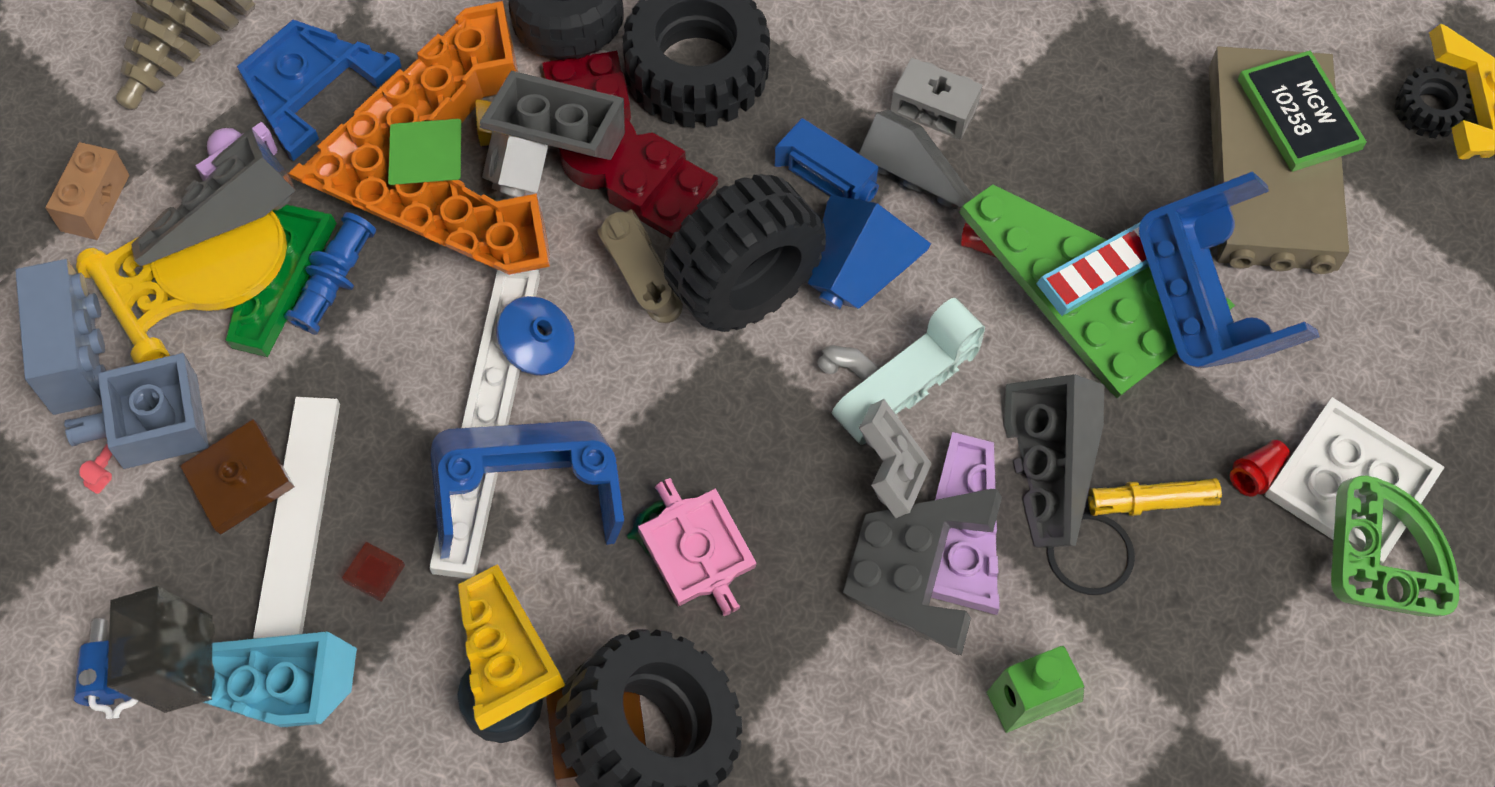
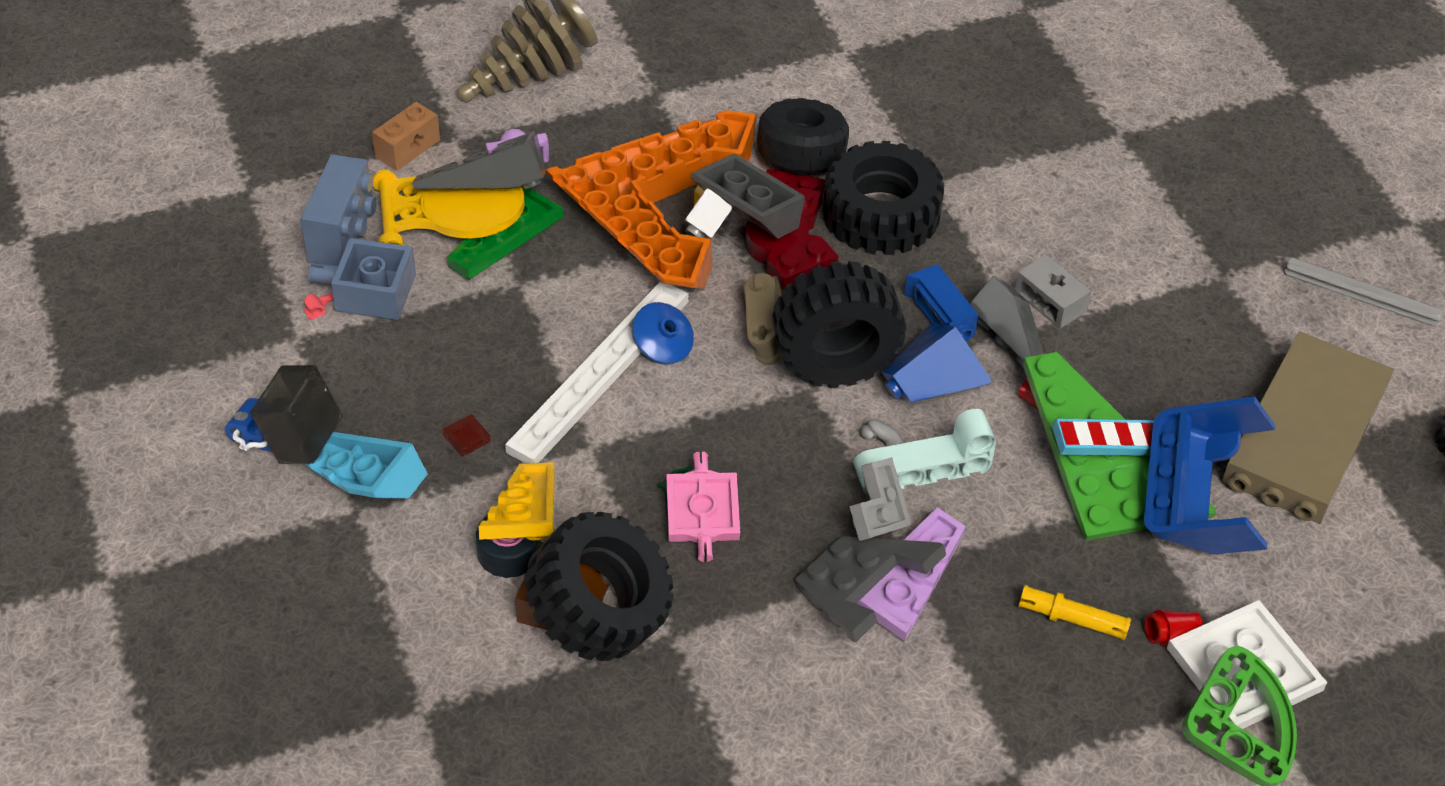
camera: 25 degrees right, 15 degrees down
(237, 476) = (407, 341): reddish brown plate -> none
(296, 68) = (591, 113): blue wing -> none
(297, 519) = (437, 378): white tile -> none
(329, 272) = (540, 241): blue piece -> none
(425, 151) = (647, 187): bright green sticker -> none
(464, 454) = (605, 394): blue windscreen -> none
(1040, 688) = (905, 692): bright green torso -> none
(1058, 439) = (1021, 537): dark grey wedge -> none
(1097, 591) = (1003, 660): black piece -> none
(1301, 110) = (1342, 395): black tile -> none

